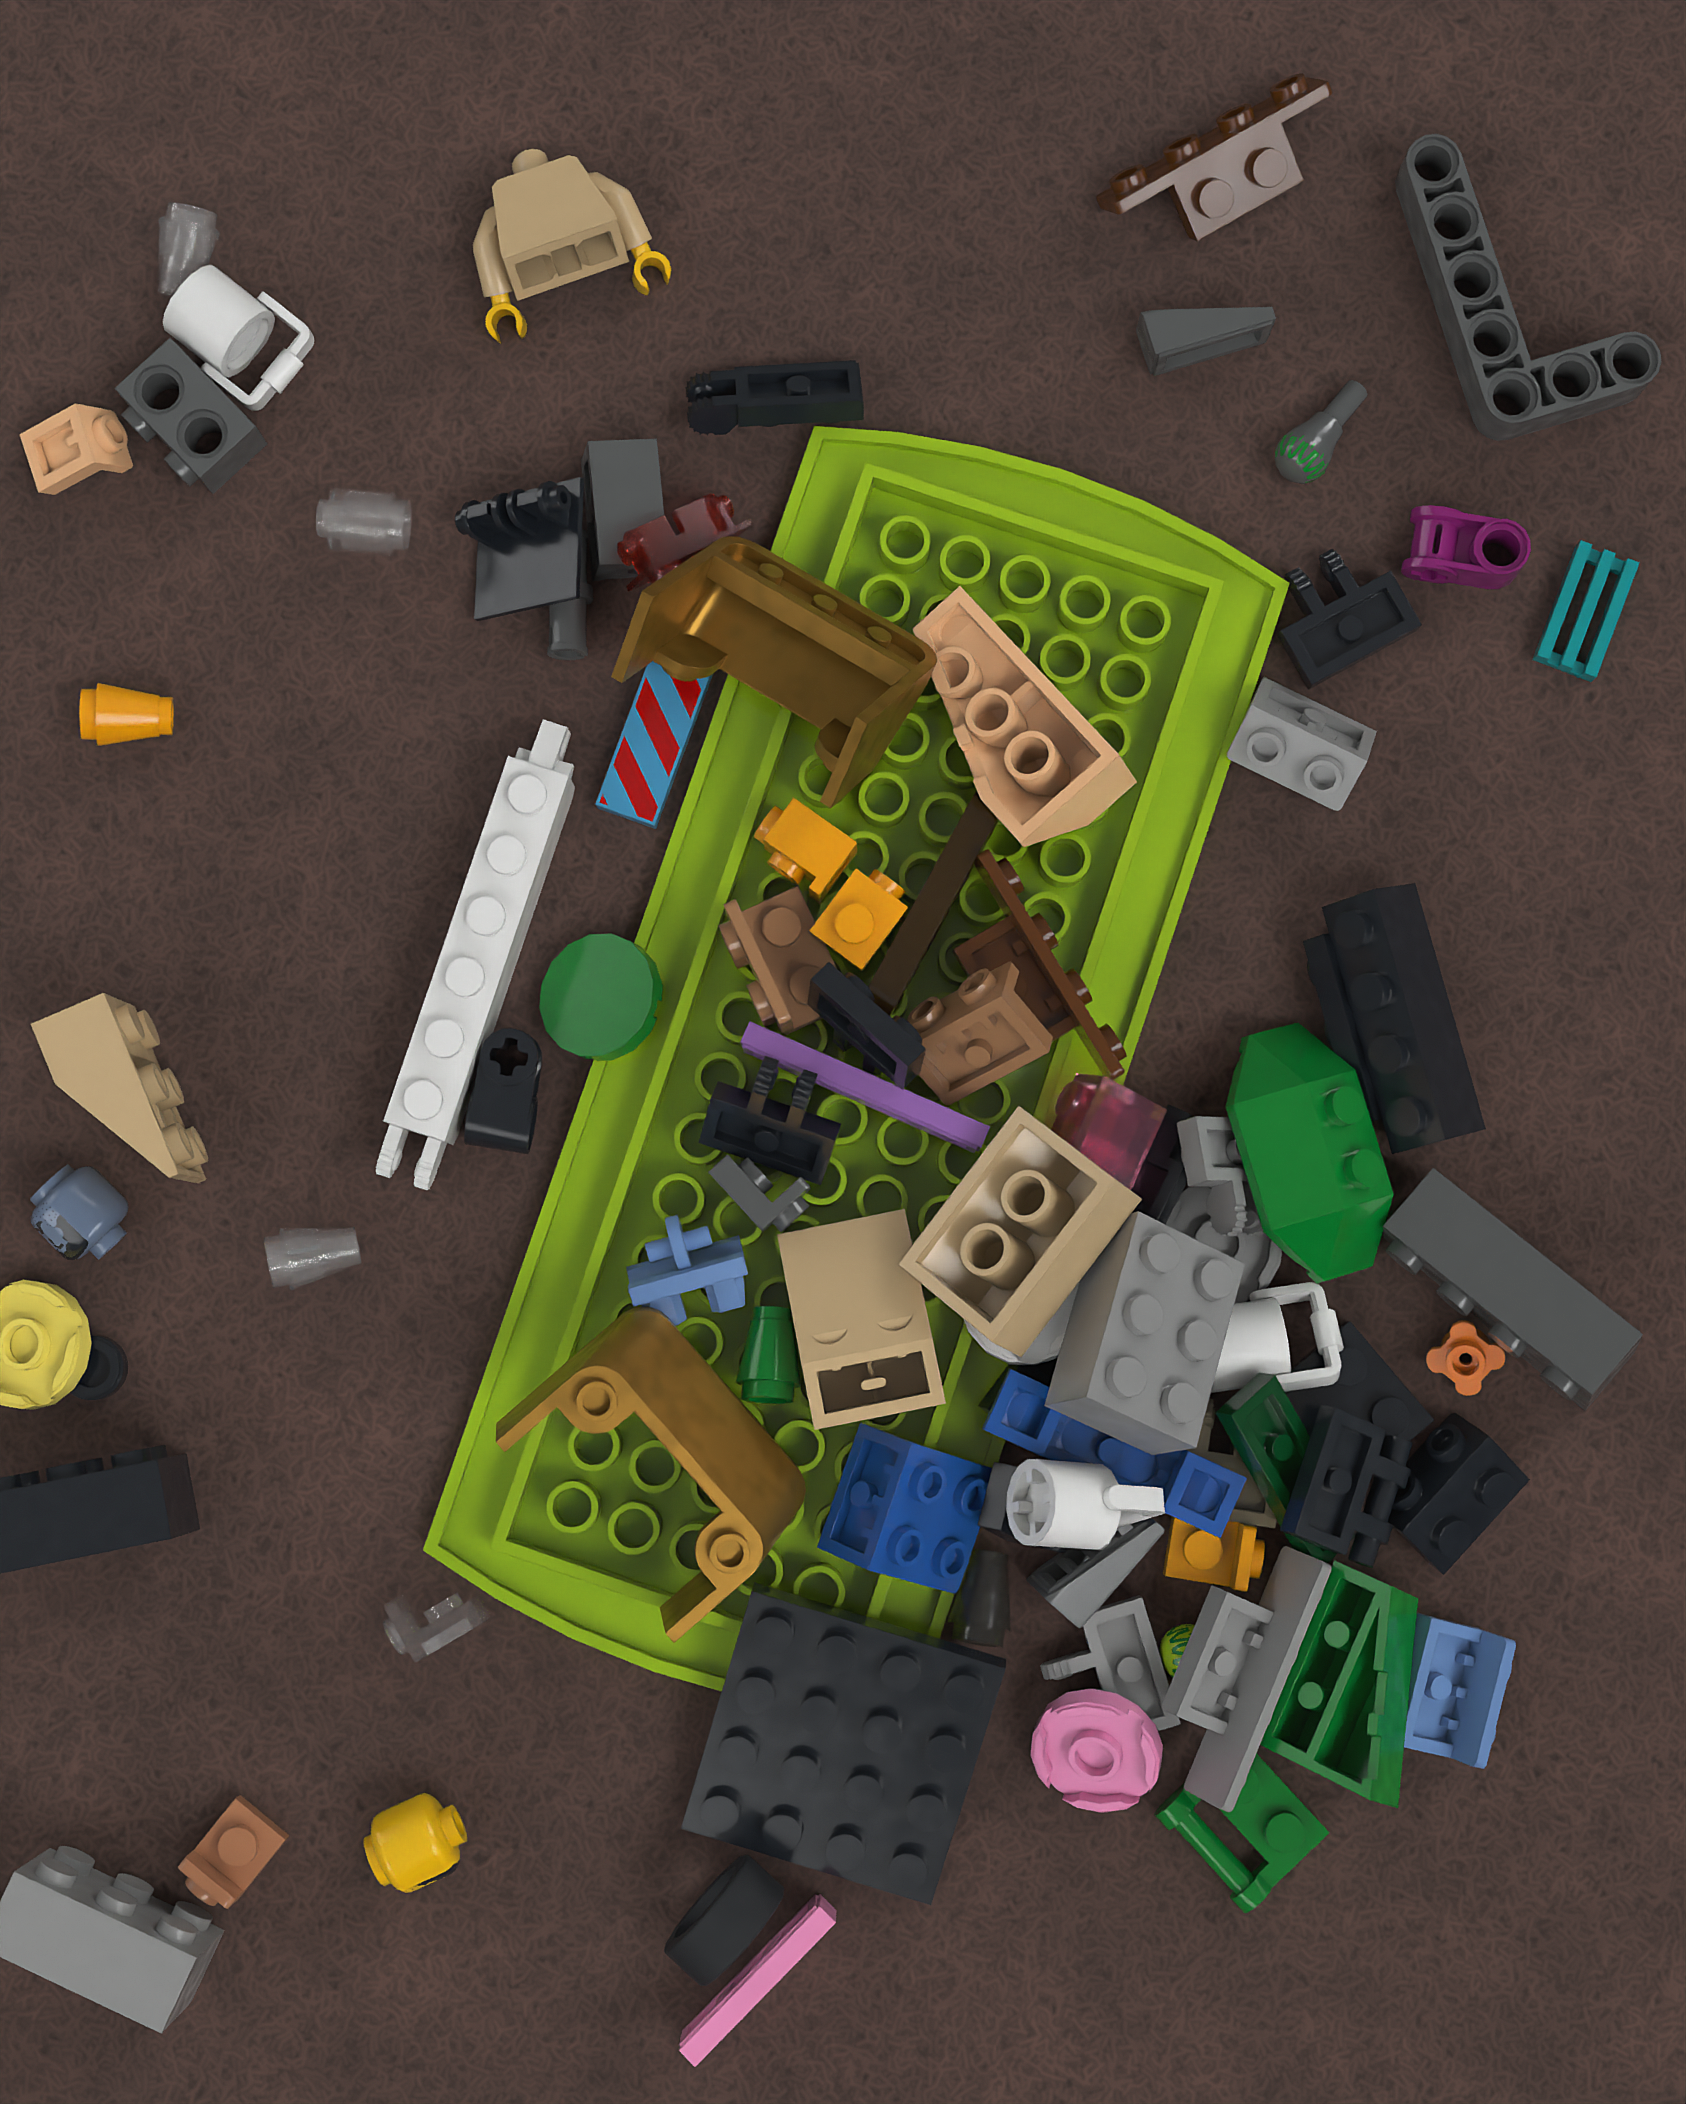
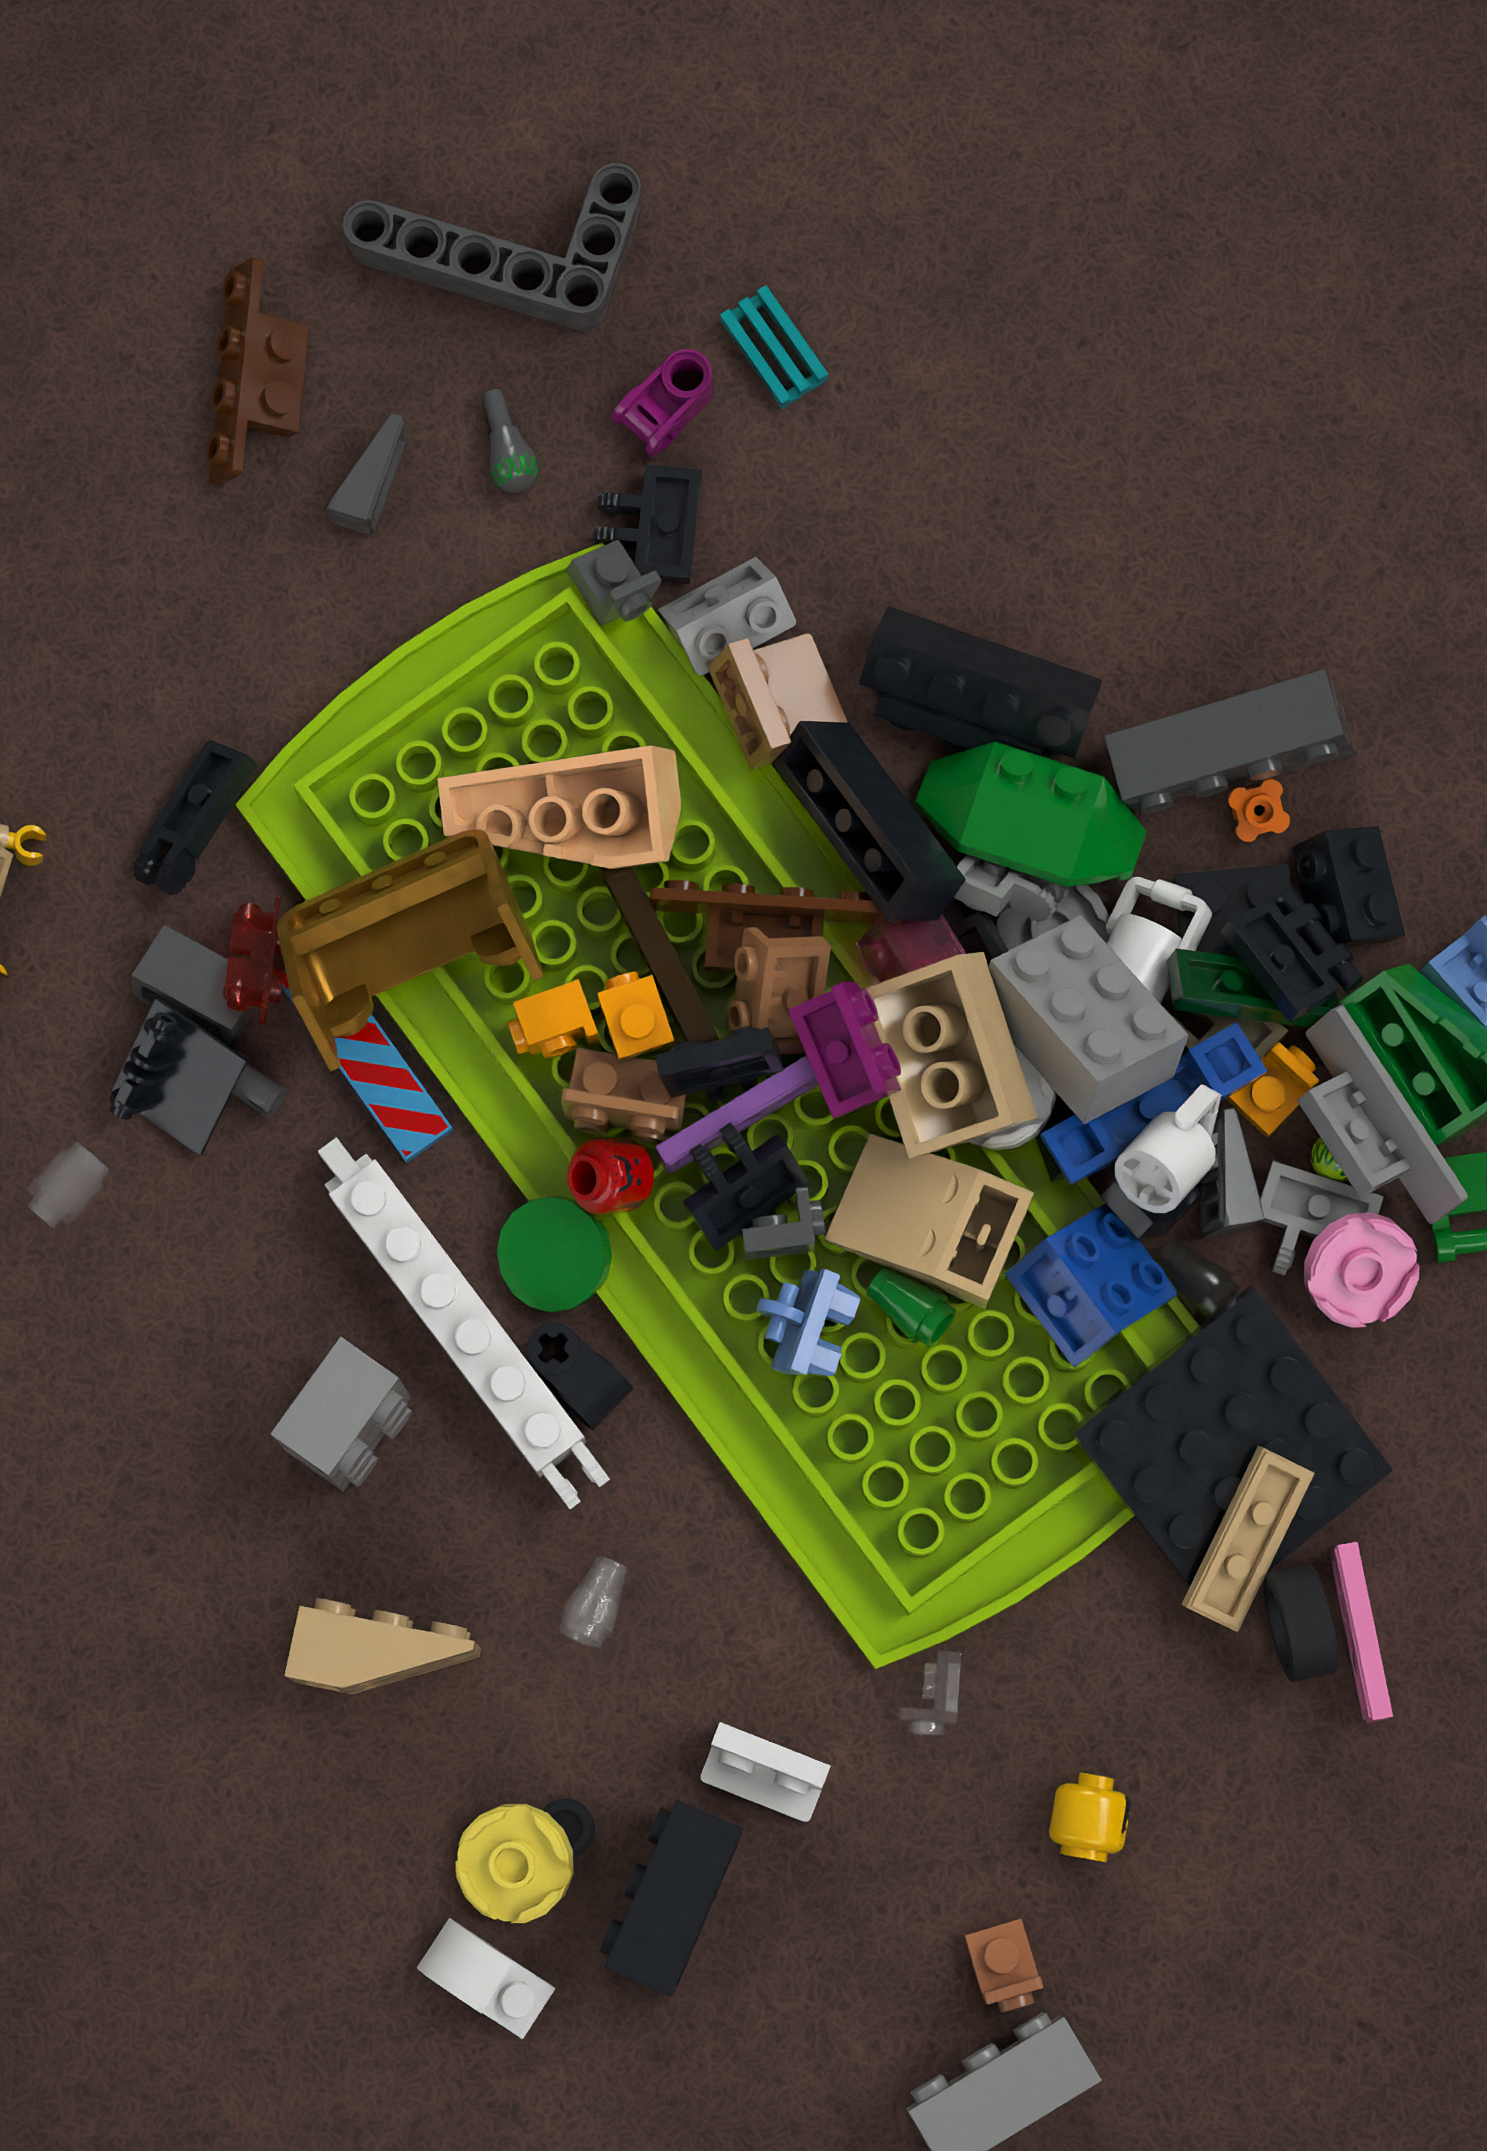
camera: 55 degrees left, 5 degrees down
(79, 1212) = (442, 1754): sand blue head -> none
(123, 714) = (83, 1467): light orange cone -> none
(261, 1515) = (764, 1772): none -> white bracket
(307, 910) = (344, 1416): none -> light grey brick
(654, 1371) = (856, 1390): pearl gold windscreen -> none
(697, 998) = (610, 1175): none -> red head
(769, 1817) = (1248, 1538): none -> tan tile
(959, 1135) = (846, 1048): none -> magenta bracket
(1194, 1007) = (869, 821): none -> black brick
(1255, 844) = (771, 692): none -> bracket
(1256, 618) = (613, 583): none -> dark grey bracket

